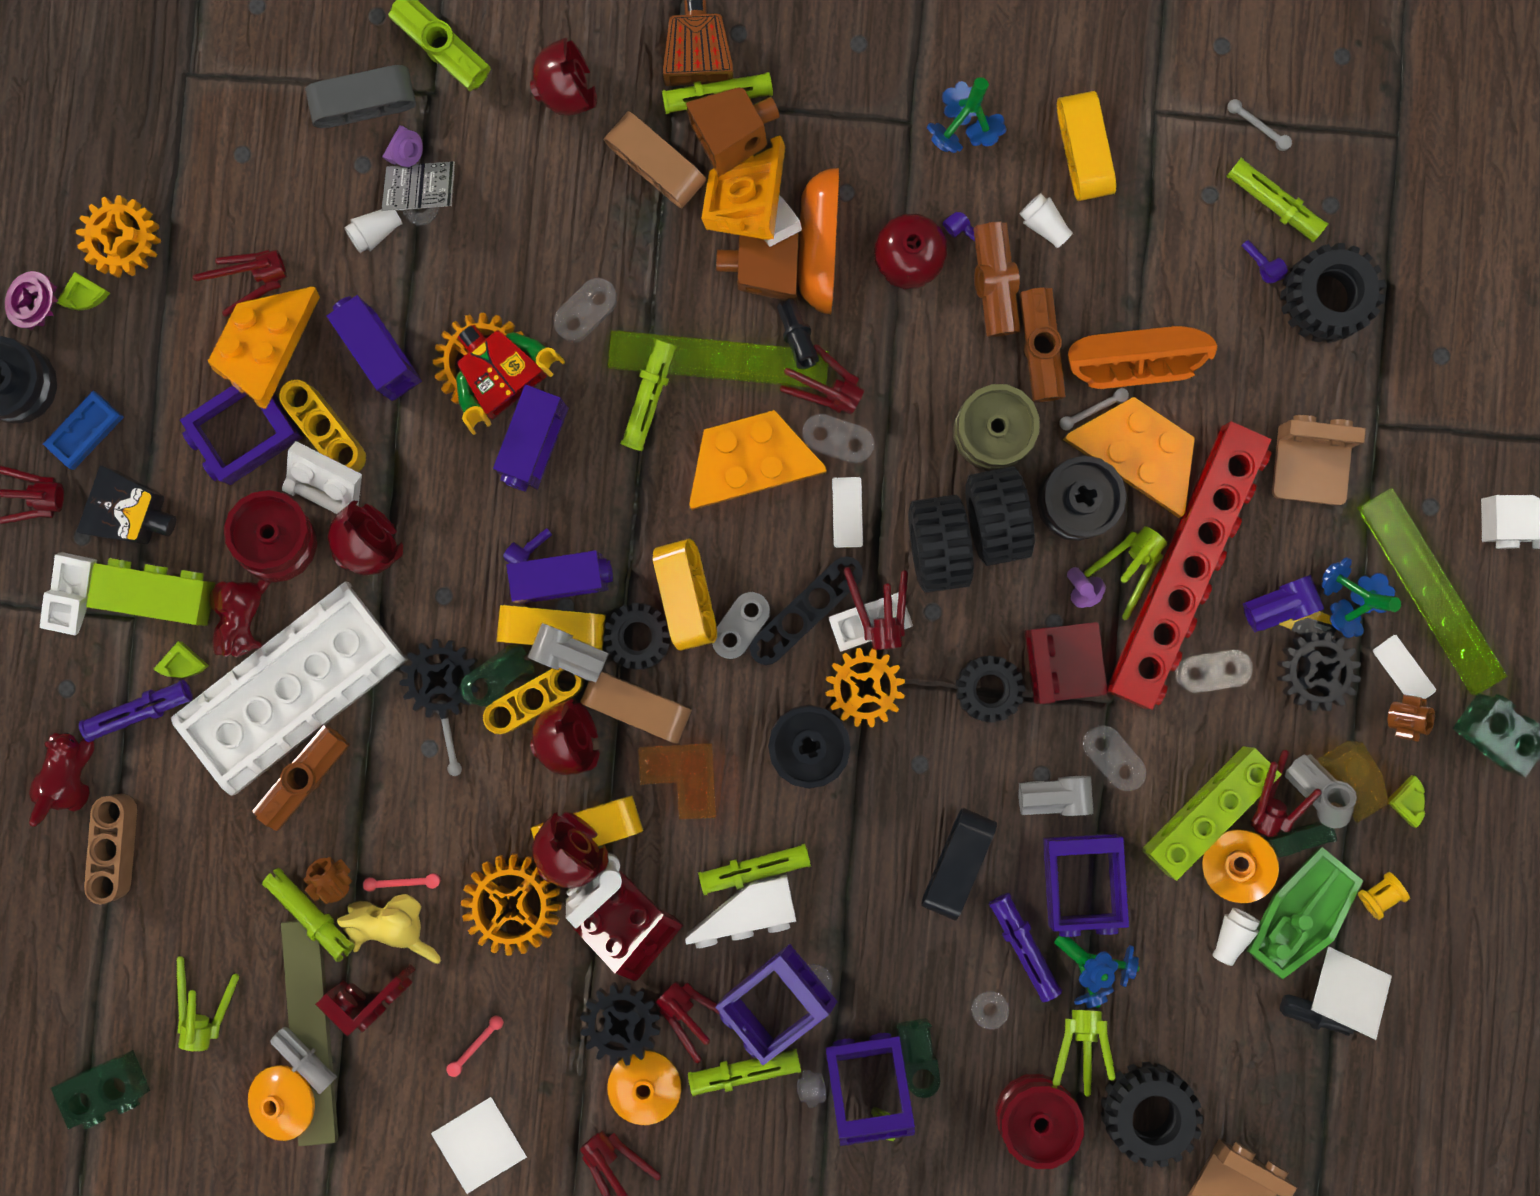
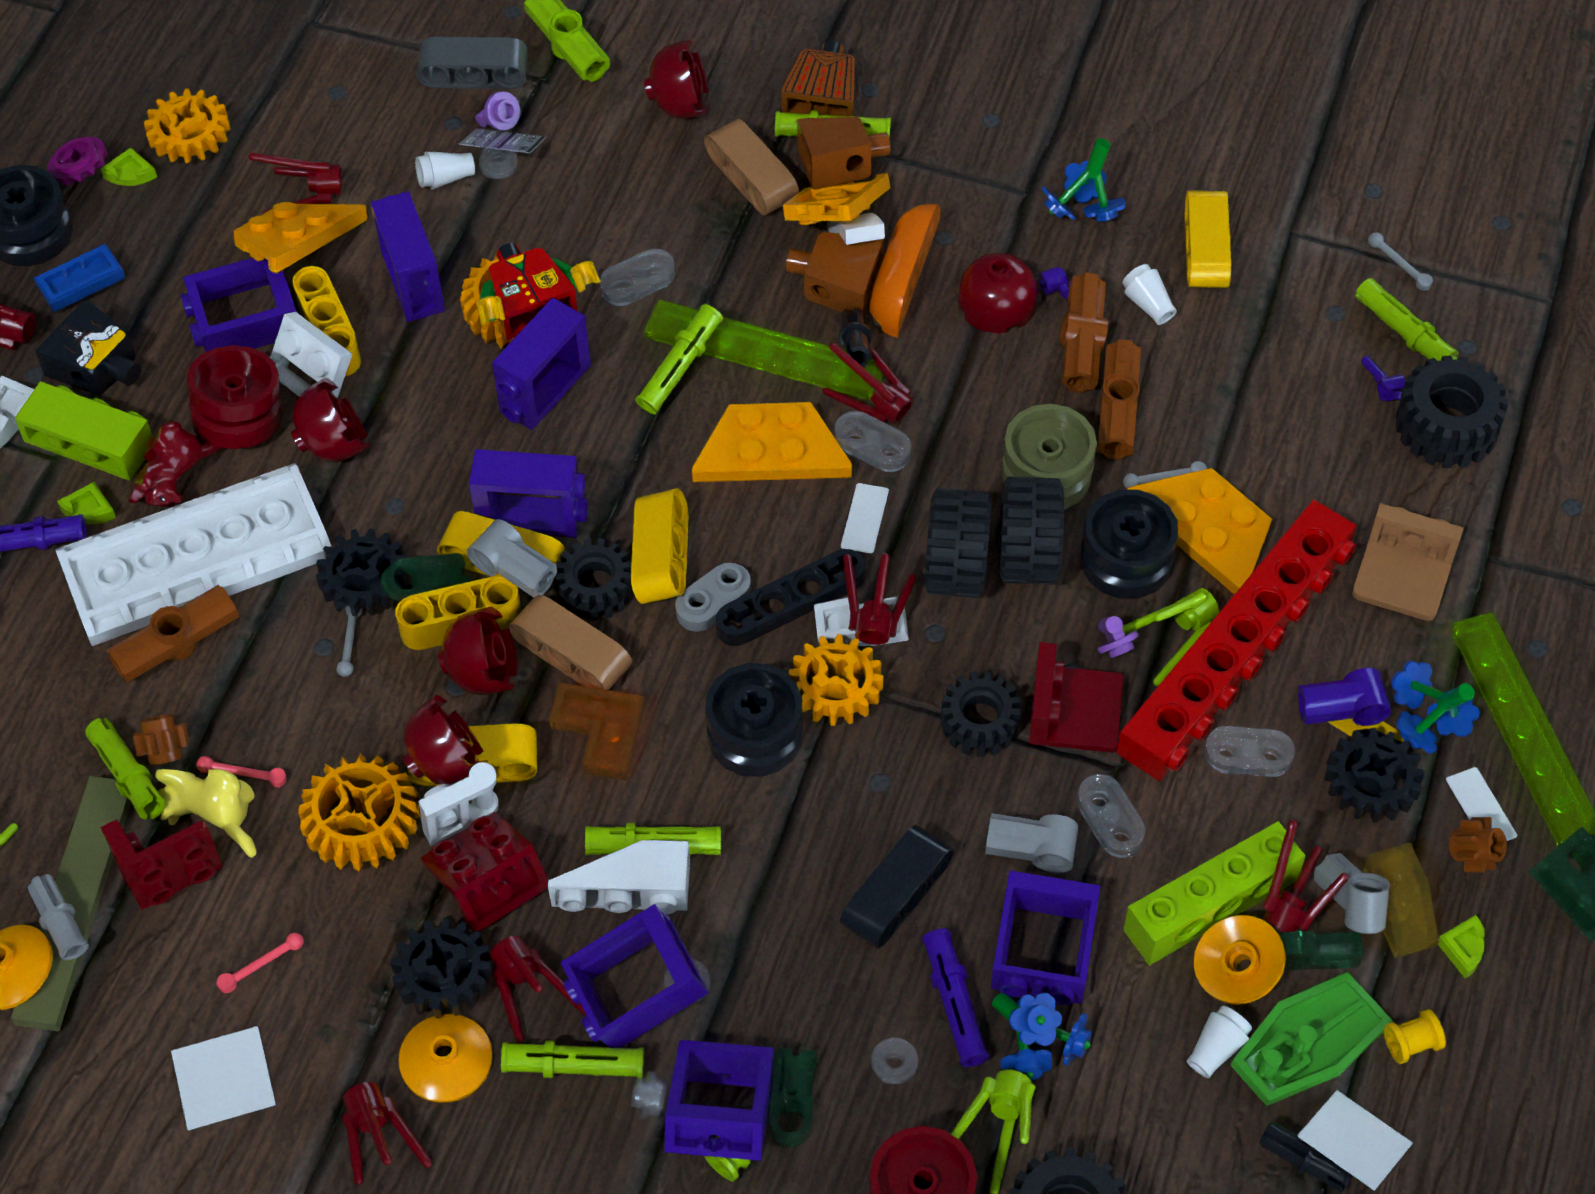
camera: 15 degrees right, 30 degrees down
(1140, 356) = (1225, 433): orange brick -> none

